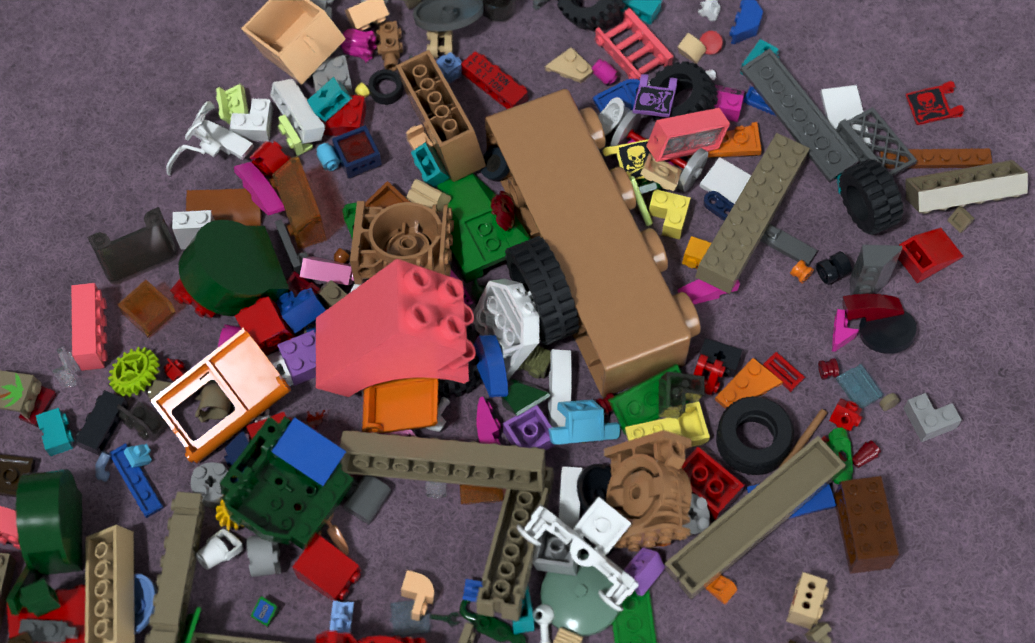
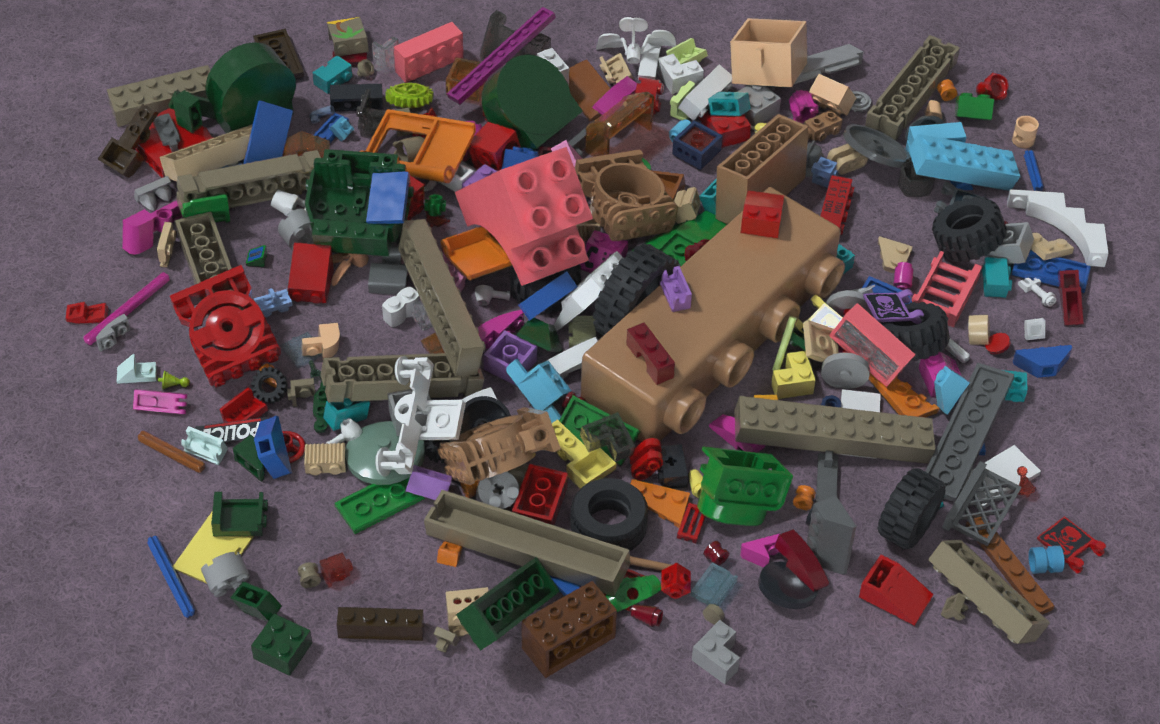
camera: 60 degrees right, 15 degrees down
(64, 397) = (365, 68): none -> dark tan tile
(128, 534) = (268, 132): none -> blue tile
(154, 505) = (305, 142): none -> clear orange brick
(155, 262) = (501, 55): none -> magenta plate
(214, 171) = (615, 68): none -> tan bracket
(298, 411) = (435, 205): none -> green gear
(412, 502) = (400, 307): none -> white brick
(520, 138) = (762, 214): none -> red slope
(577, 253) = (676, 290): none -> medium lavender hinge
(628, 310) = (658, 361): none -> dark red arch
(749, 346) = (695, 479): none -> light yellow cone
(752, 103) = (949, 388): none -> medium azure slope
(780, 312) = (740, 486): none -> green brick
(833, 563) = (507, 603): none -> dark green brick
(866, 103) = (1027, 487): none -> clear red piece
(947, 129) = (1043, 560): none -> dark azure wheel

